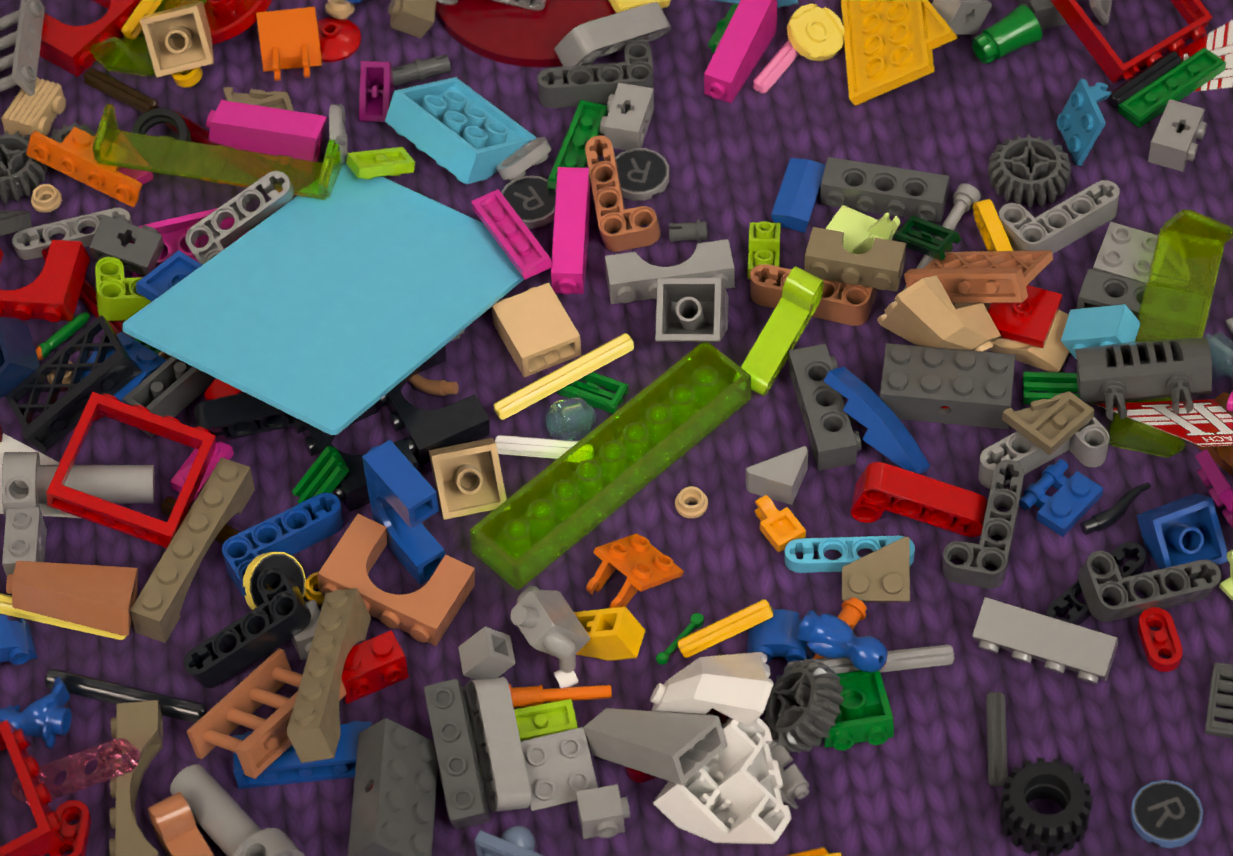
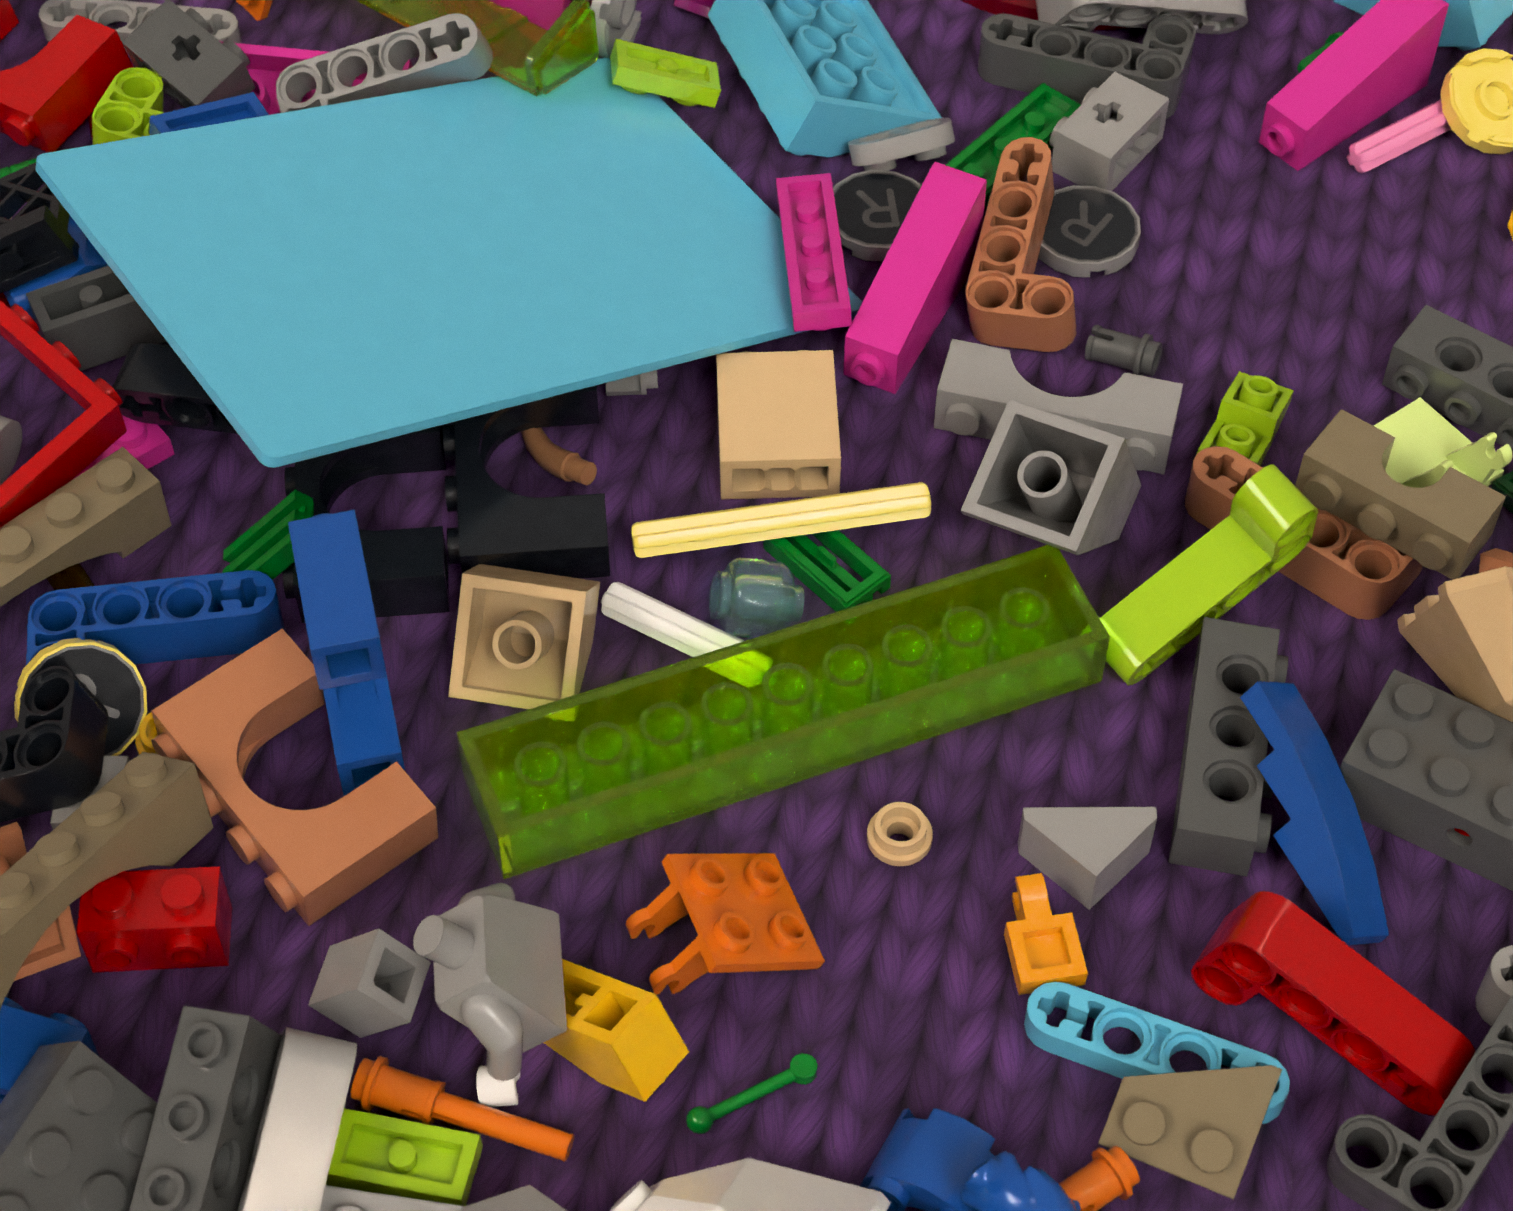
camera: 20 degrees right, 0 degrees up
(725, 628) = (840, 1111): yellow axle -> none
(798, 194) = (1346, 353): blue piece -> none

